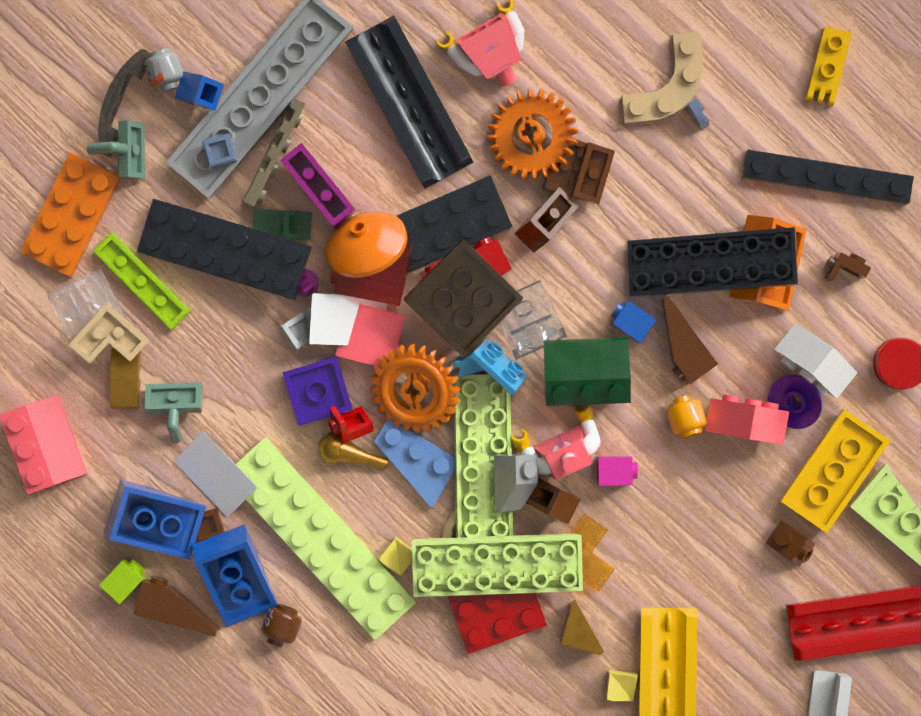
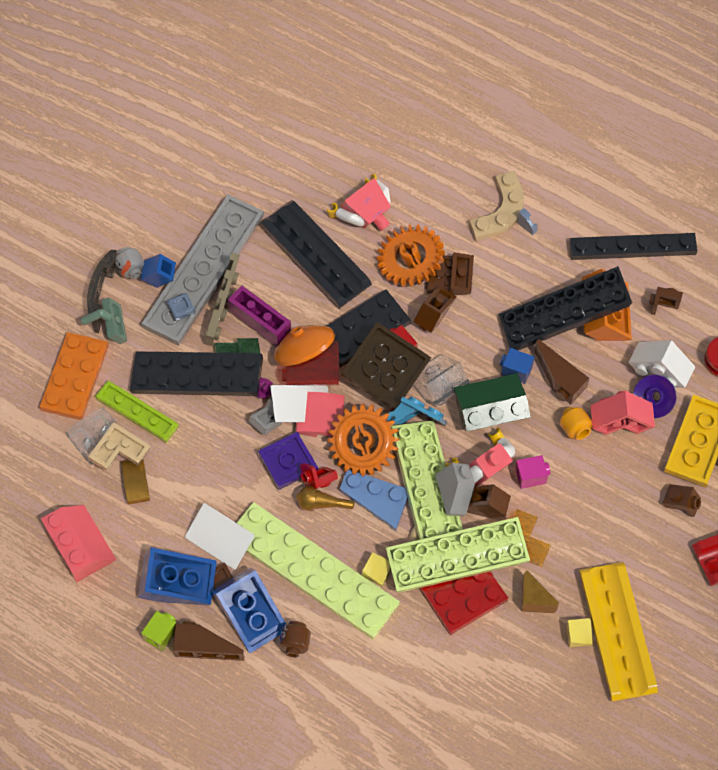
camera: 10 degrees left, 25 degrees down
(172, 400) = (176, 488): sand green plate -> none
(828, 65) = (612, 175): yellow hinge -> none

